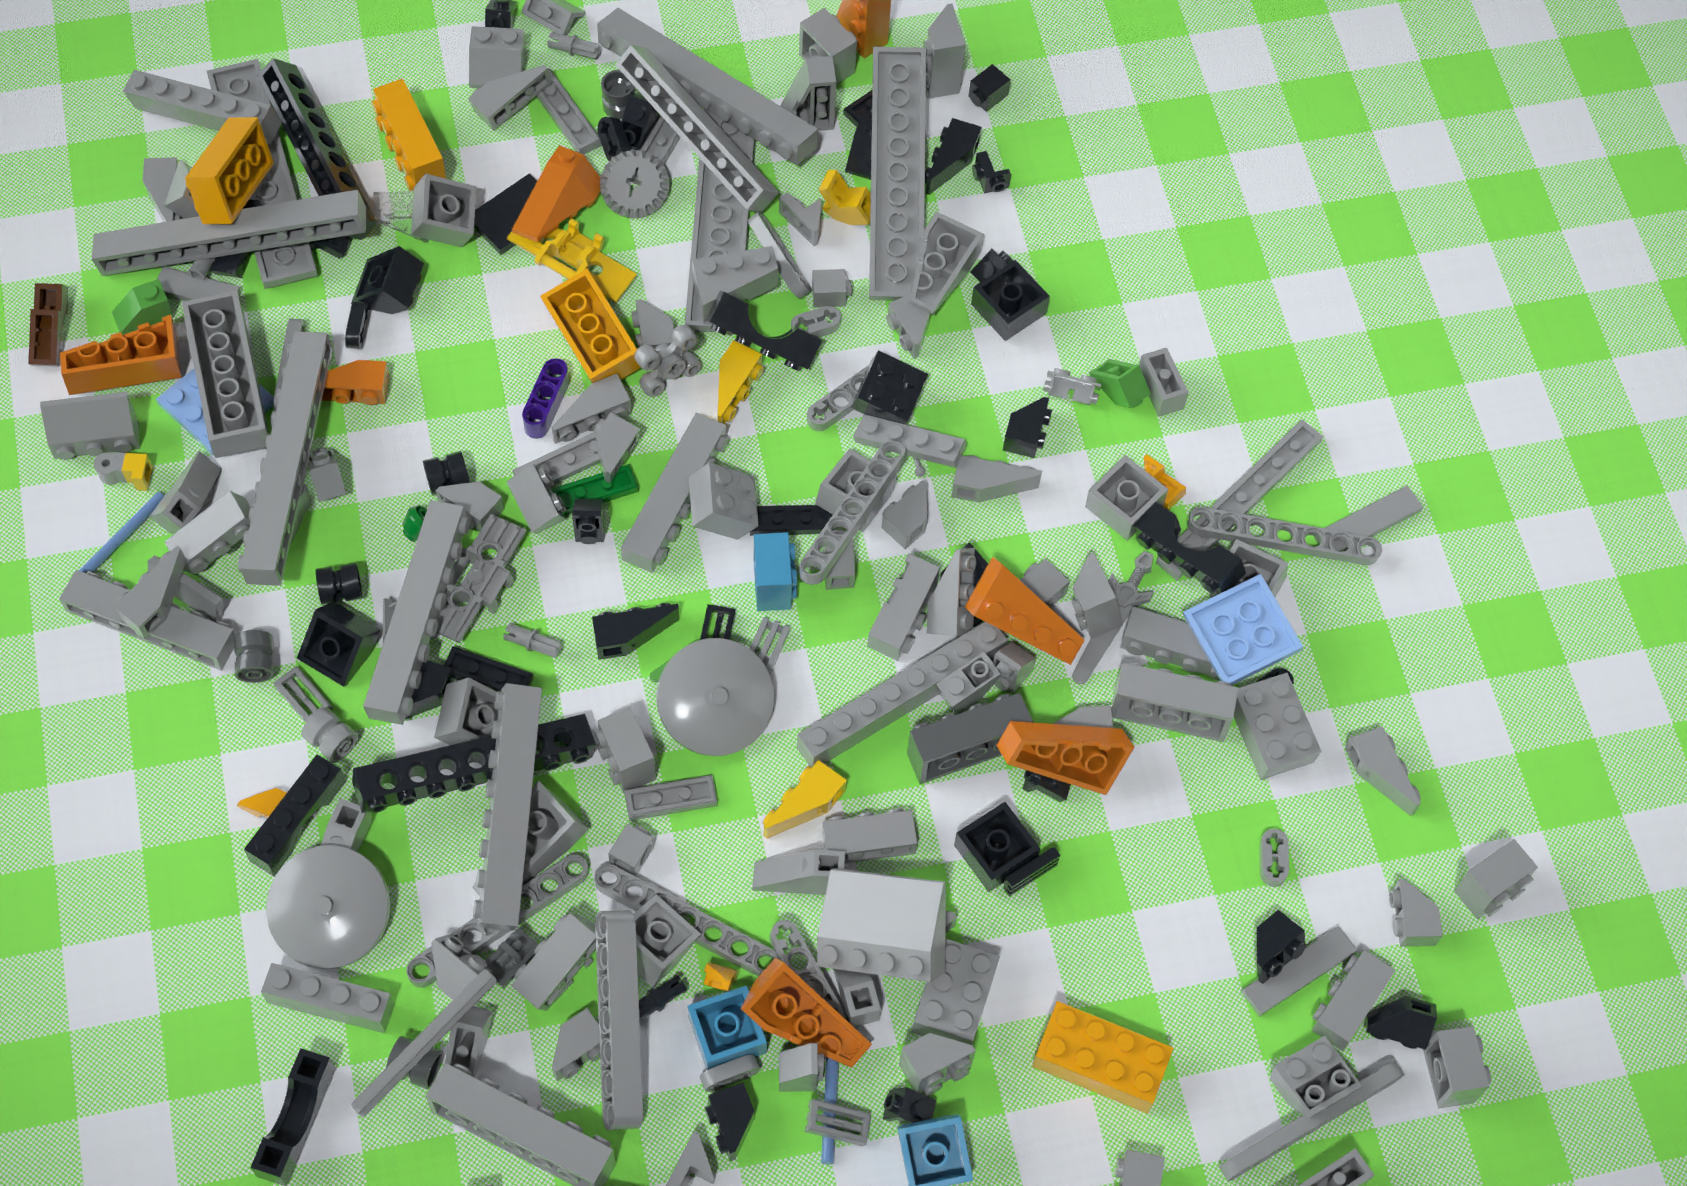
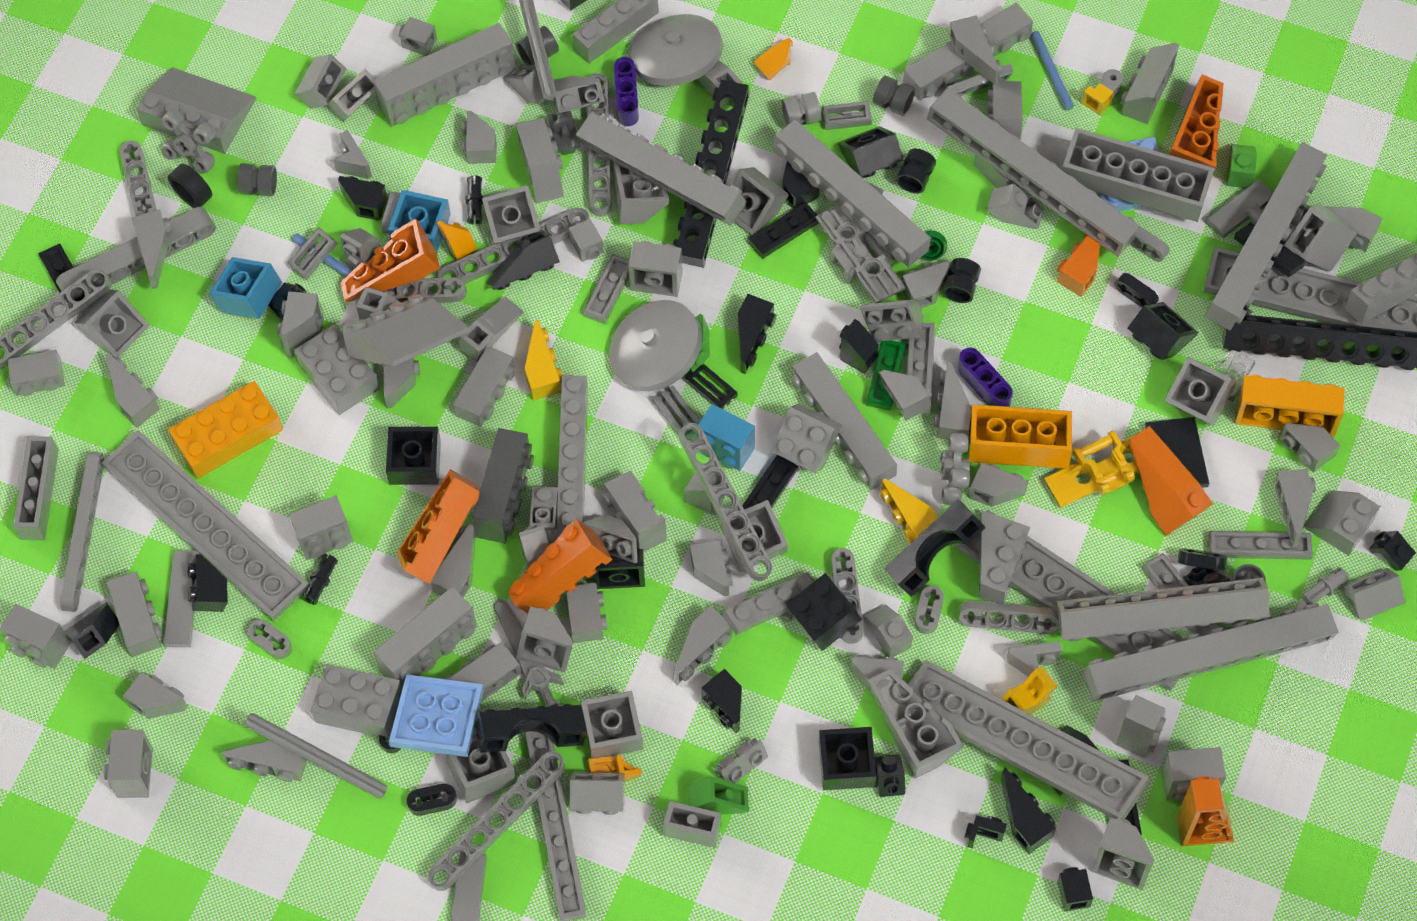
camera: 130 degrees right, 0 degrees up
(47, 324) = (1267, 97): reddish brown slope -> none
(186, 494) = (1051, 112): light grey slope -> none
(229, 170) = (1316, 247): light orange brick -> none
(277, 835) = (766, 79): black arch -> none
(420, 916) = (626, 100): none -> dark purple beam
(438, 110) = (1310, 443): none -> light grey slope
(532, 640) = (788, 267): light grey axle -> none
(619, 1020) = (469, 156): light grey beam -> none
(644, 198) = (1148, 563): light grey gear -> none
(702, 892) = (528, 257): none -> black slope
(830, 288) = (952, 635): light grey brick -> none
(861, 339) = (889, 630): none -> light grey slope
(1031, 871) = (381, 480): black tile -> none
(1139, 875) = (321, 528): none -> light grey brick
(1182, 852) = (319, 579): none -> black pin
(1194, 473) = (597, 792): none -> light grey brick
(1212, 1009) = (206, 525): none -> light grey plate
(1304, 611) = (430, 793): none -> black beam
(1314, 1078) = (102, 544): light grey slope -> none
(1356, 720) = (315, 755): none -> light grey axle

